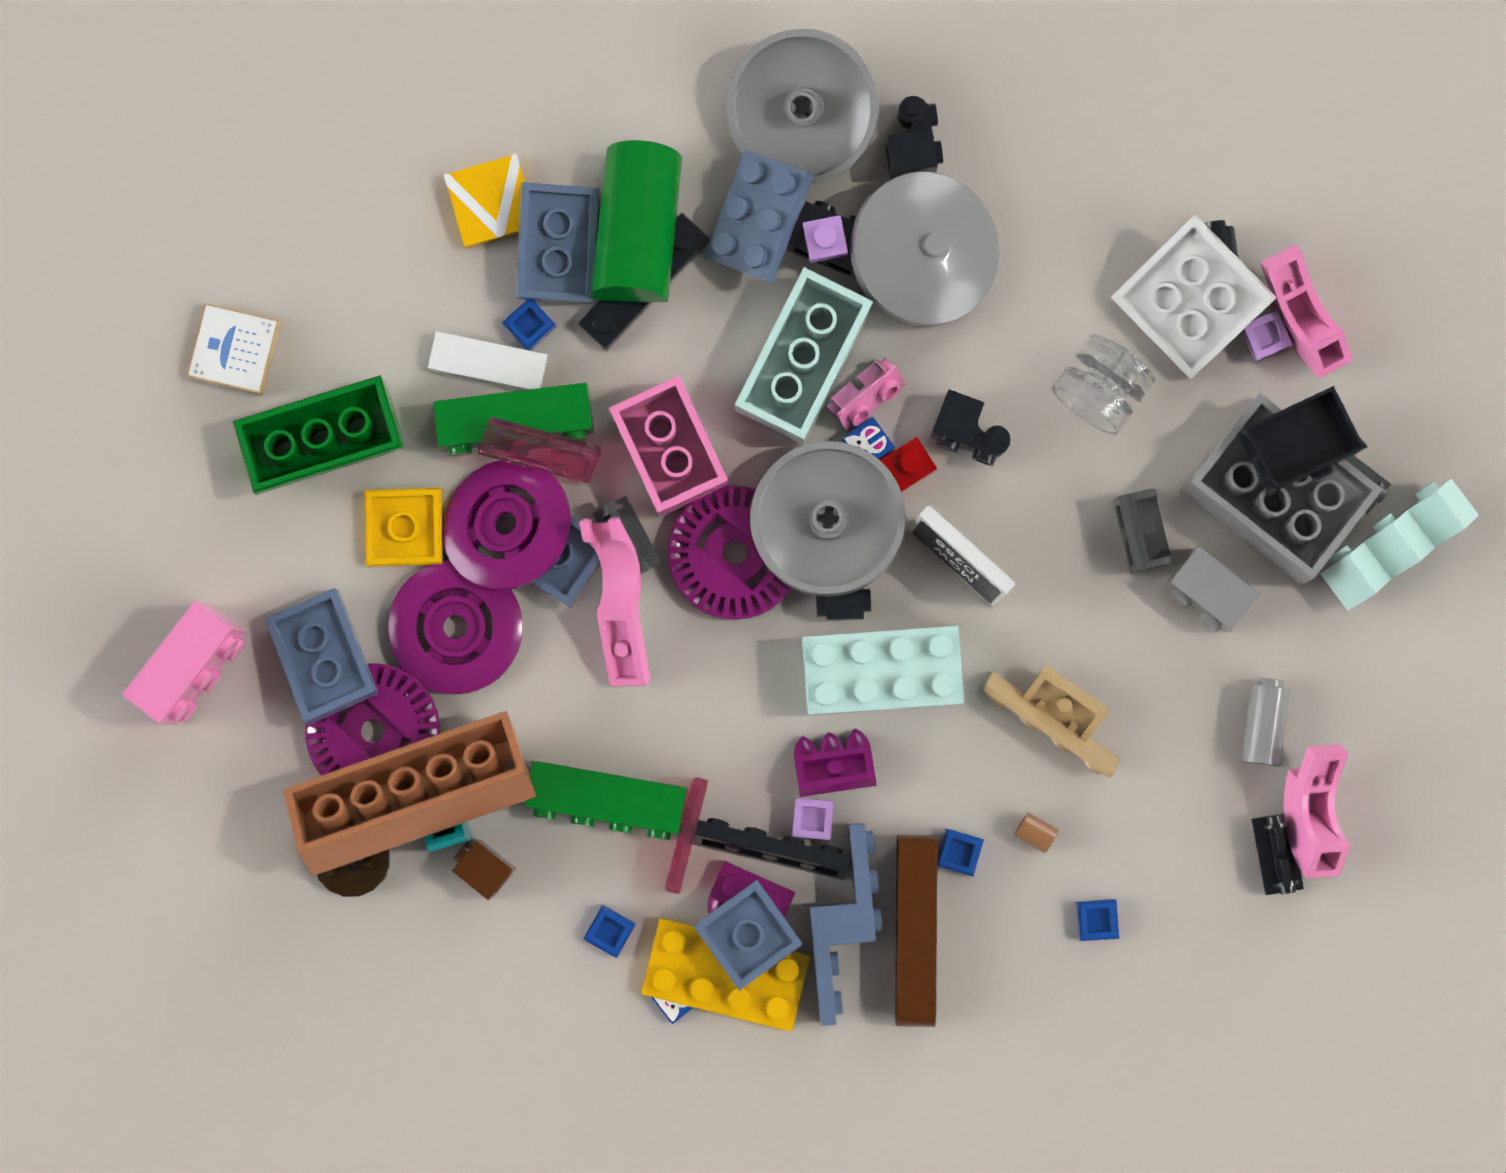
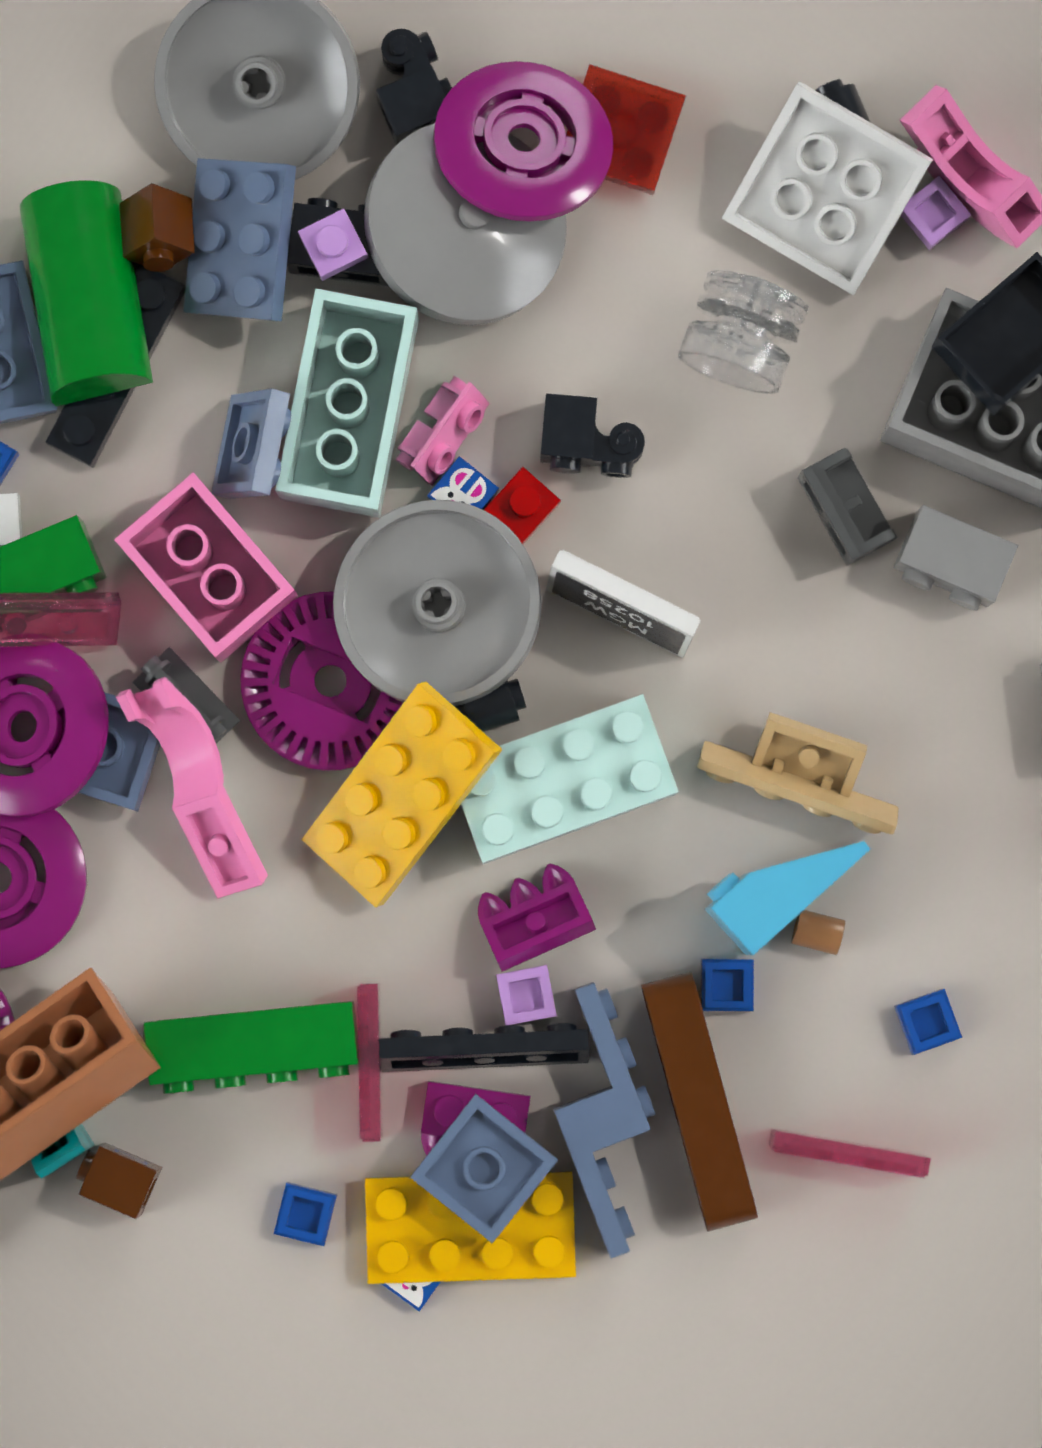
camera: 20 degrees left, 0 degrees up
(701, 191) = (157, 228): none -> reddish brown brick
(726, 366) = (251, 444): none -> sand blue plate
(763, 648) = (401, 794): none -> yellow plate
(984, 235) = (538, 182): none -> magenta piece
(1006, 799) = (768, 899): none -> medium azure slope
(1014, 998) = (849, 1153): none -> clear pink tile
(1056, 213) = (641, 125): none -> clear red plate

